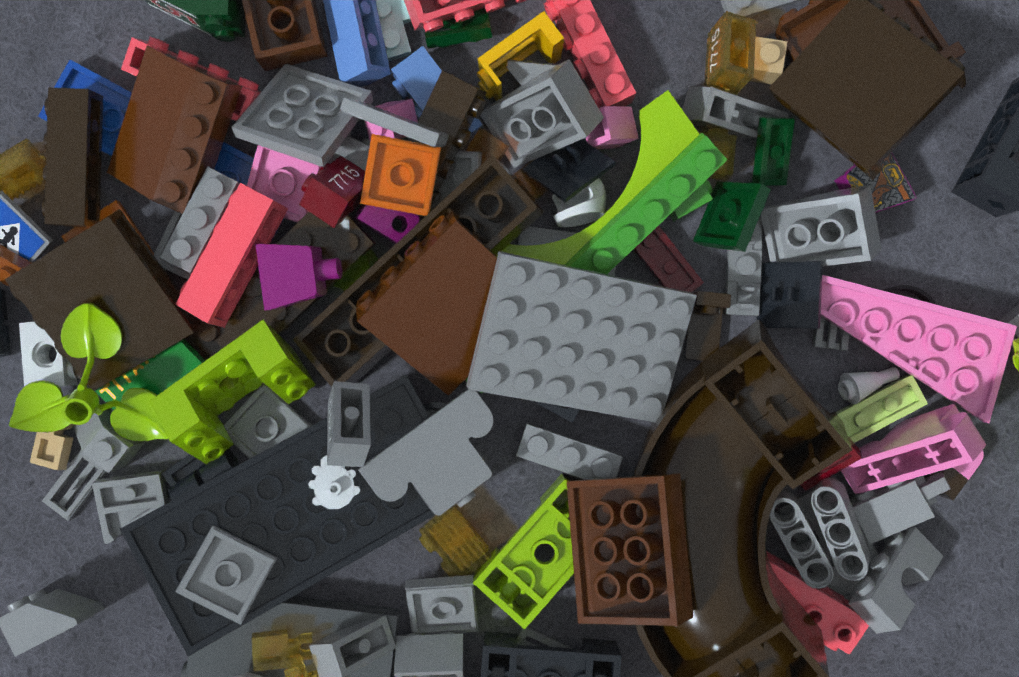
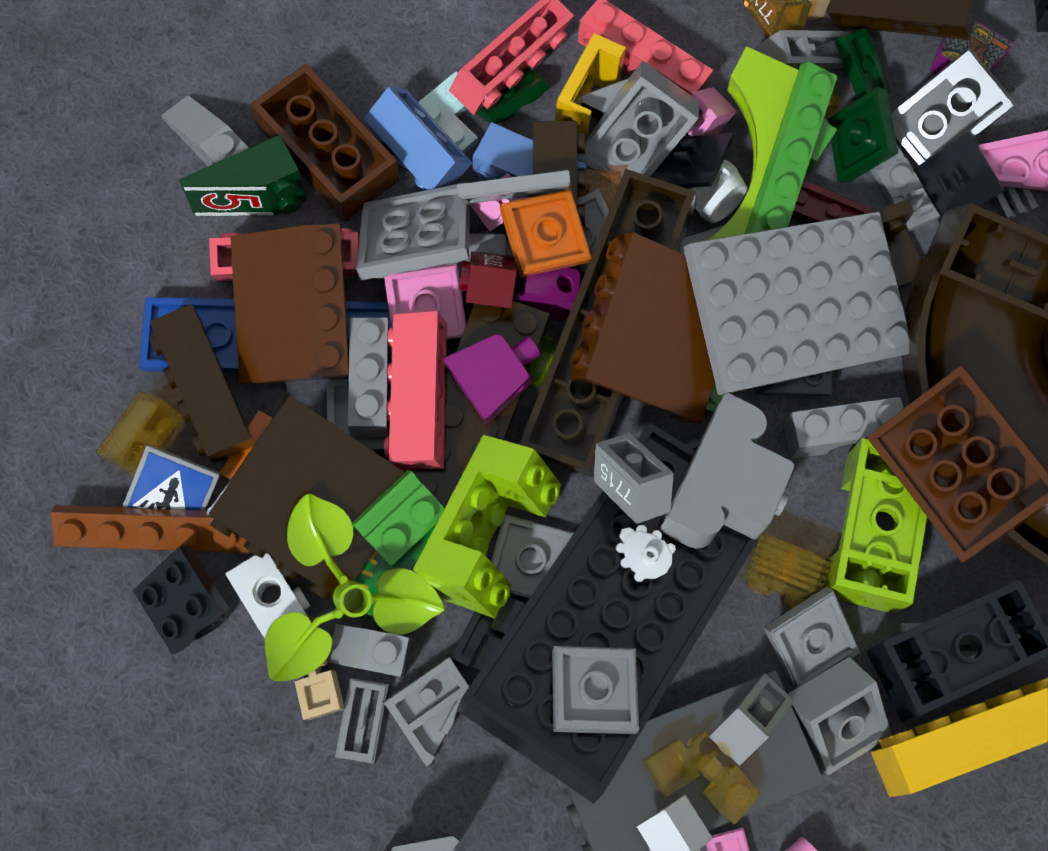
camera: 30 degrees left, 15 degrees down
(162, 352) = (399, 517): none -> bright green plate

